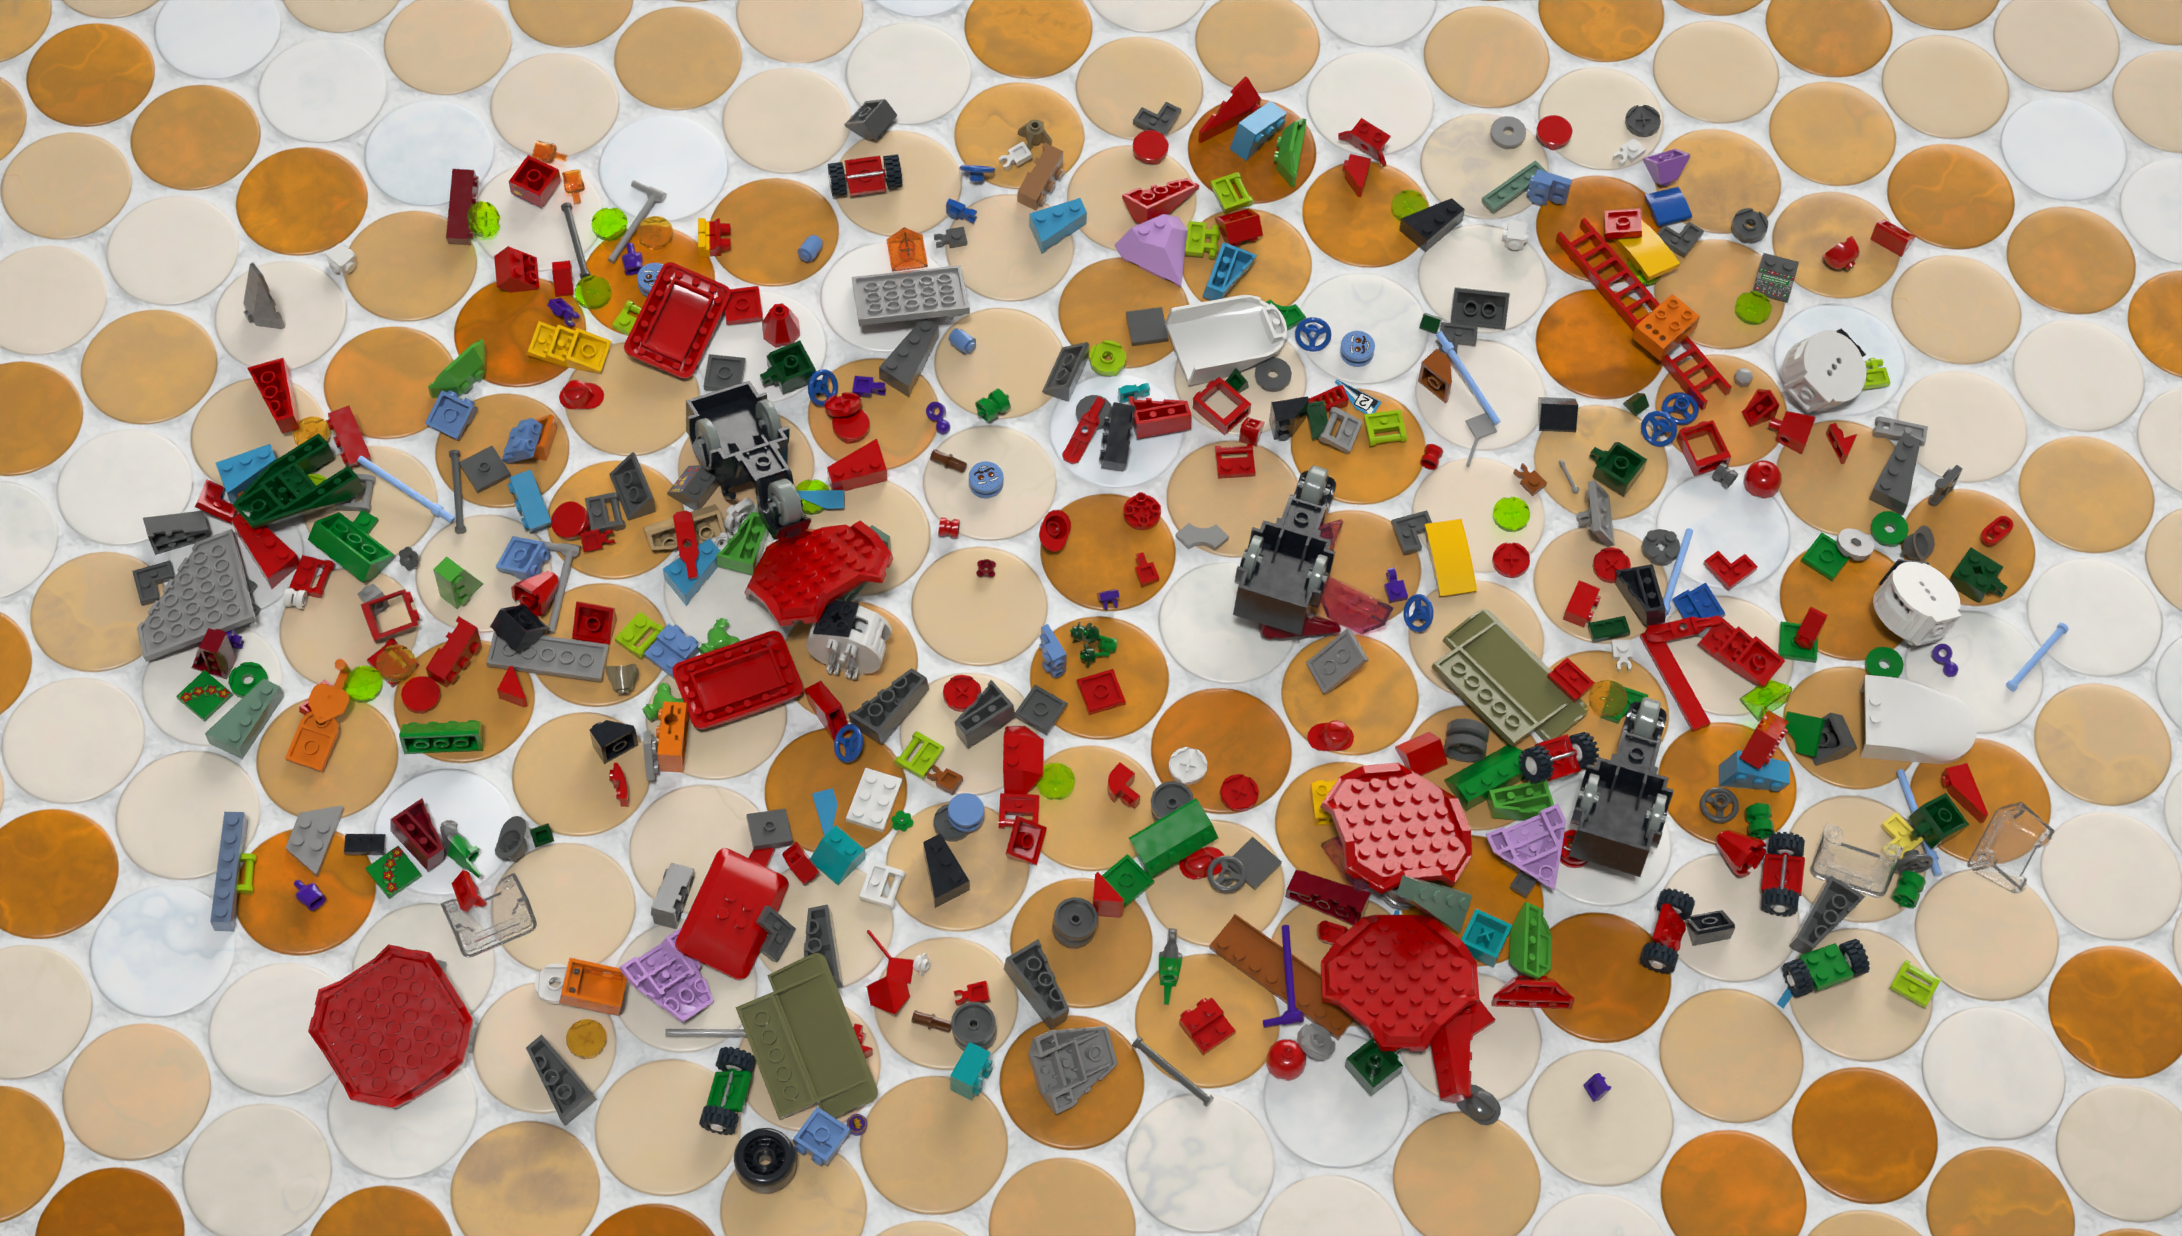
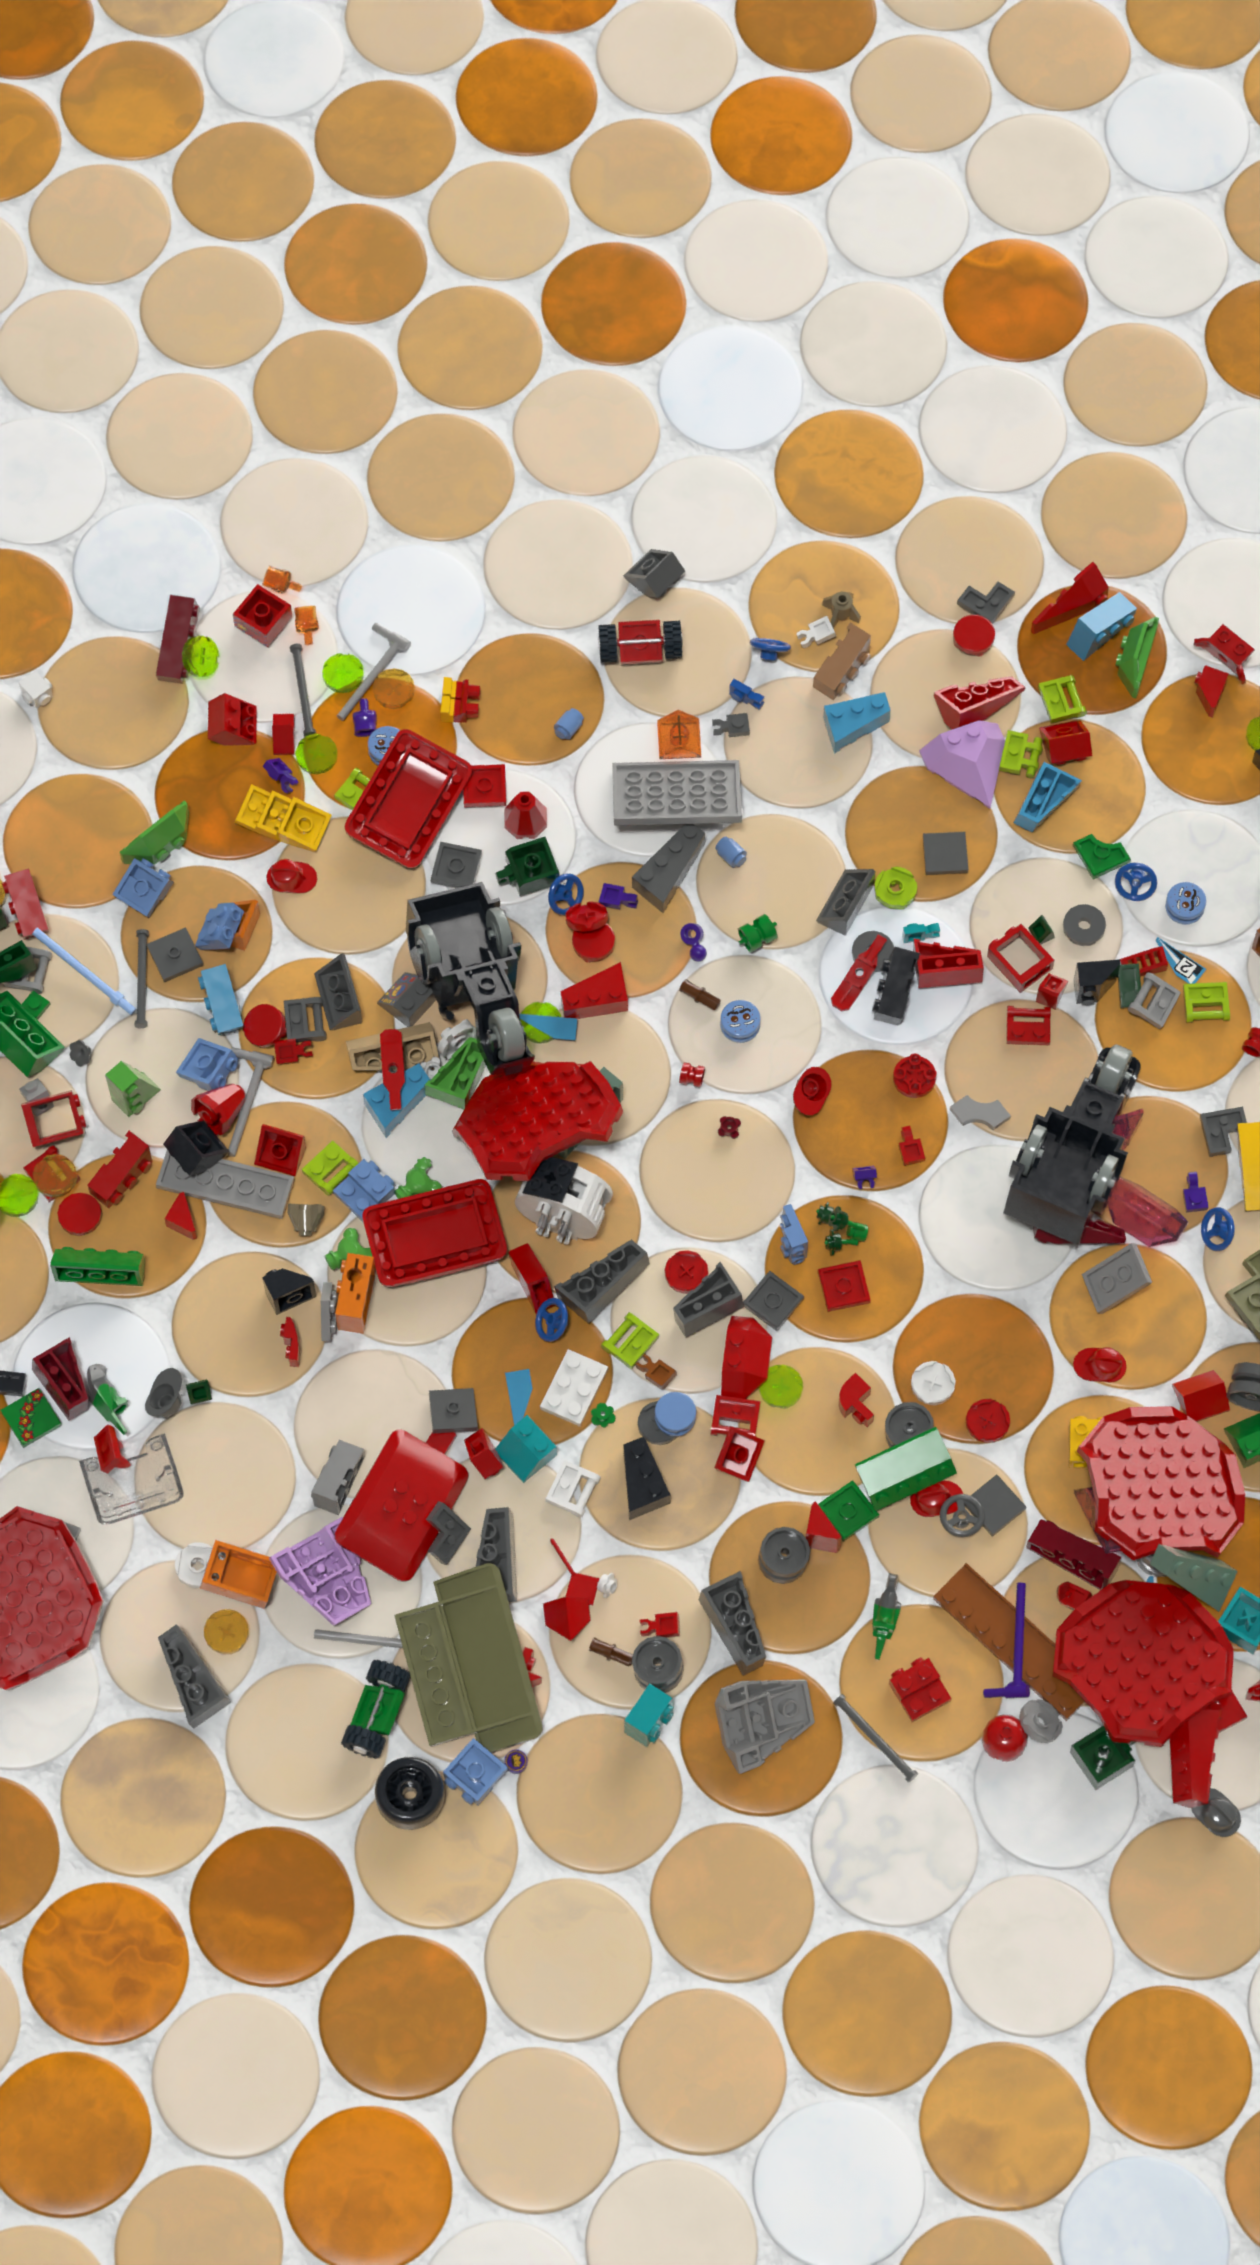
camera: 10 degrees right, 5 degrees up
(1224, 335) = (1034, 874): white windscreen -> none

